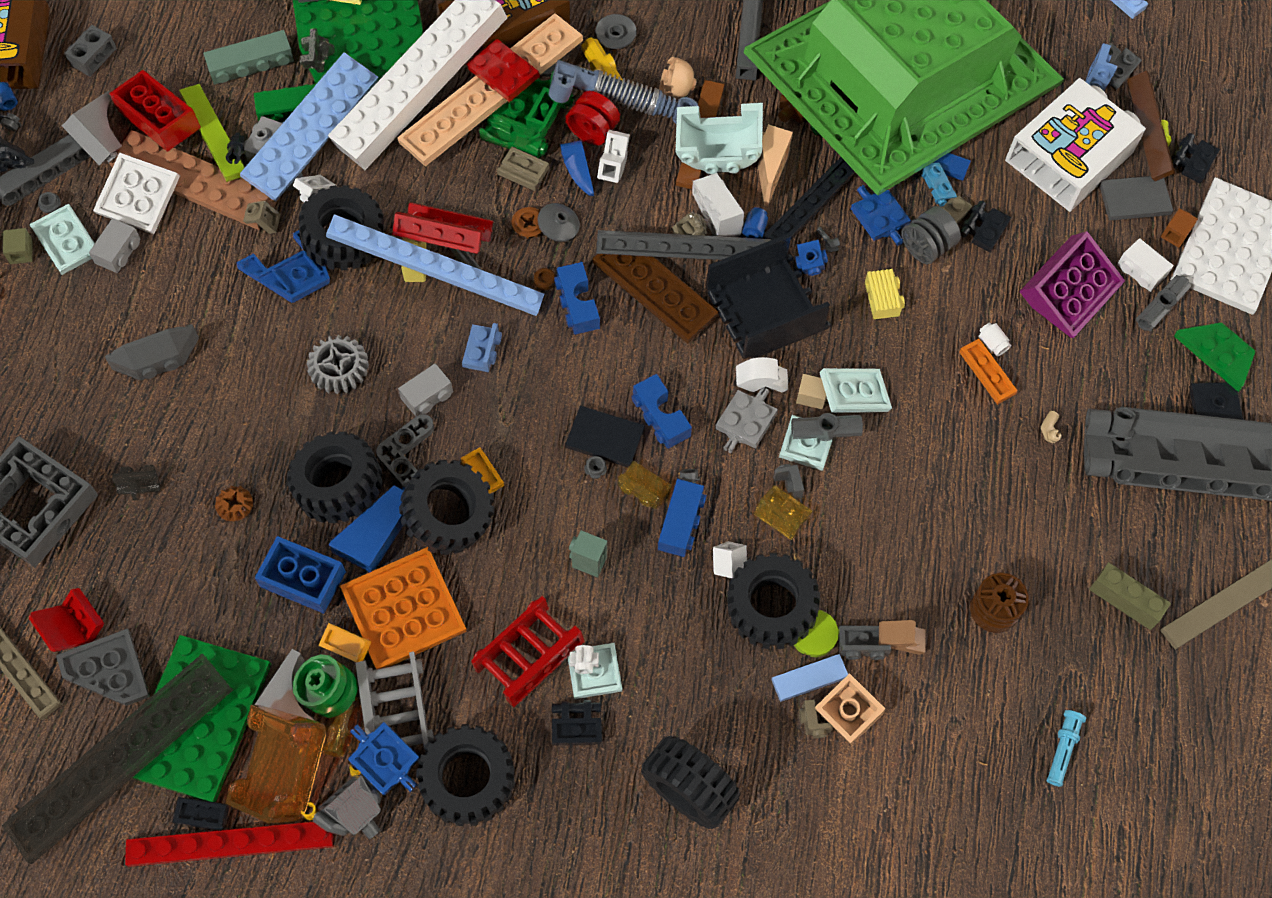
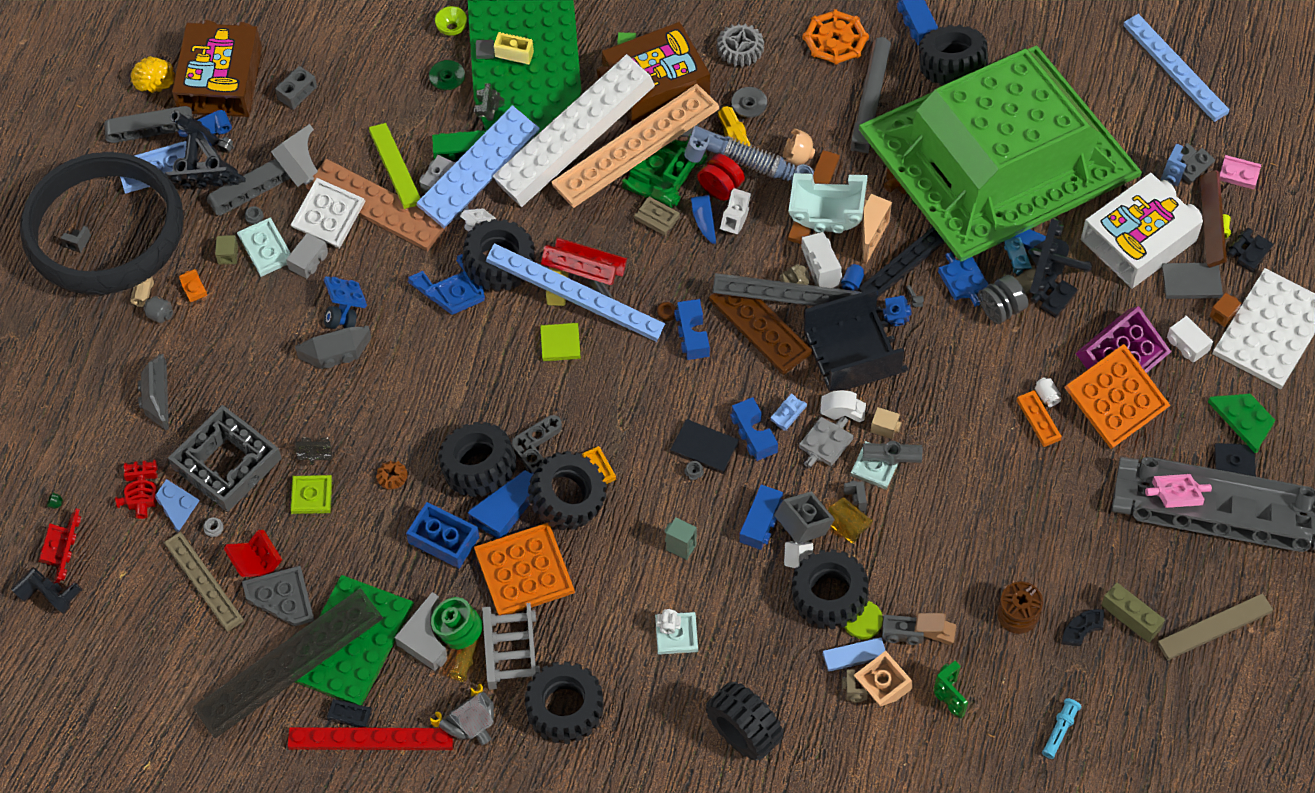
camera: 10 degrees right, 5 degrees down
(13, 584) = (213, 522): none -> light grey plate
(137, 536) = (311, 494): none -> lime tile
(155, 110) = (348, 143): red brick -> none
(163, 288) = (346, 294): none -> blue plate
(235, 148) = (414, 181): black axle -> none
(248, 57) = (430, 102): sand green brick -> none
(263, 215) = (433, 239): dark tan bracket -> none
(265, 21) = (446, 69): none -> dark green dish
(280, 766) = (416, 679): clear orange windscreen -> none
(344, 643) = (474, 592): light orange tile -> none
(353, 358) = (496, 363): light grey gear -> none
(384, 758) = (499, 681): blue plate -> none
(423, 325) = (560, 342): none -> lime tile
(426, 390) = (557, 395): light grey brick -> none
(481, 347) = (607, 364): medium blue bracket -> none
(503, 70) = (647, 130): red plate -> none
(526, 214) = (655, 256): dark orange gear -> none
(535, 672) = (626, 628): red fence -> none
(558, 229) = (678, 268): dark grey dish -> none
(576, 730) = (657, 678): black plate -> none
(644, 485) = (733, 488): clear yellow bracket -> none
(689, 475) = (772, 483): dark grey plate -> none
(699, 388) = (788, 412): none -> light blue hips
(732, 514) = (804, 517): none -> dark grey brick
(855, 390) = (921, 424): light aqua tile -> none
(883, 294) = (956, 346): light yellow brick -> none
(925, 716) = (946, 692): none -> green bracket
(978, 181) = (1051, 257): none -> black plate
(1048, 429) = (1084, 470): tan arm -> none
(1070, 617) = (1081, 626): none -> black tile
(1075, 338) = (1117, 396): none -> orange plate
(1156, 309) = (1194, 379): dark grey piece -> none
(1162, 444) = (1178, 490): none -> bright pink plate
(1170, 72) = (1240, 172): none -> bright pink plate

